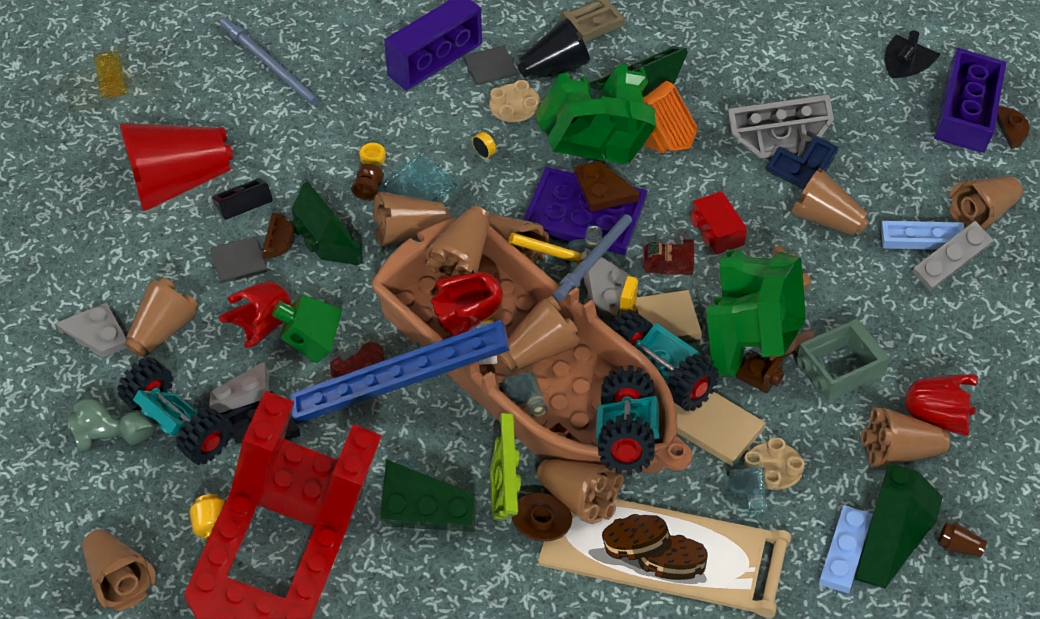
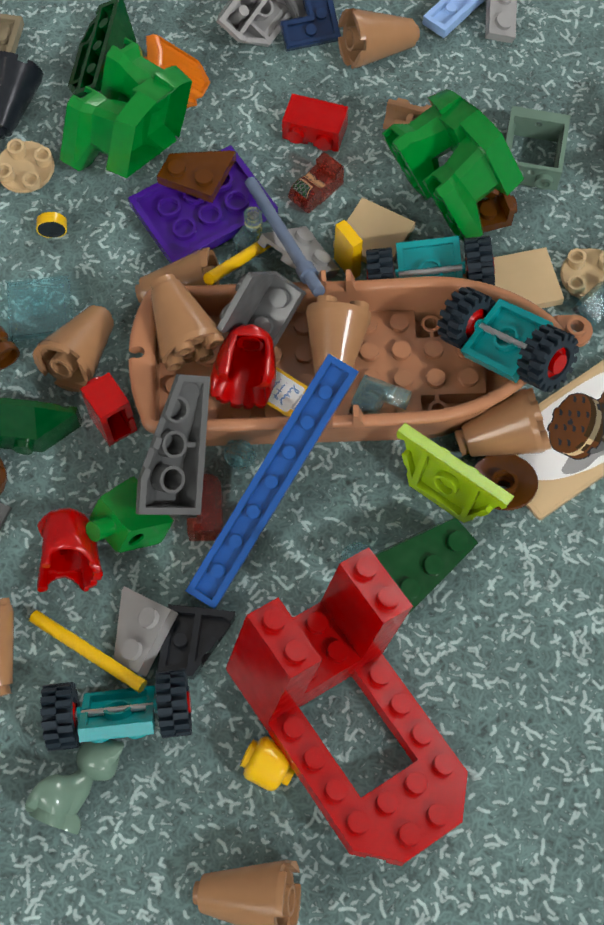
camera: 50 degrees left, 15 degrees up
(203, 369) = (88, 651): none -> yellow bar
(357, 307) = (176, 457): none -> dark grey wedge
(370, 256) = (109, 408): none -> red piece
(520, 273) = (262, 300): none -> dark grey bracket

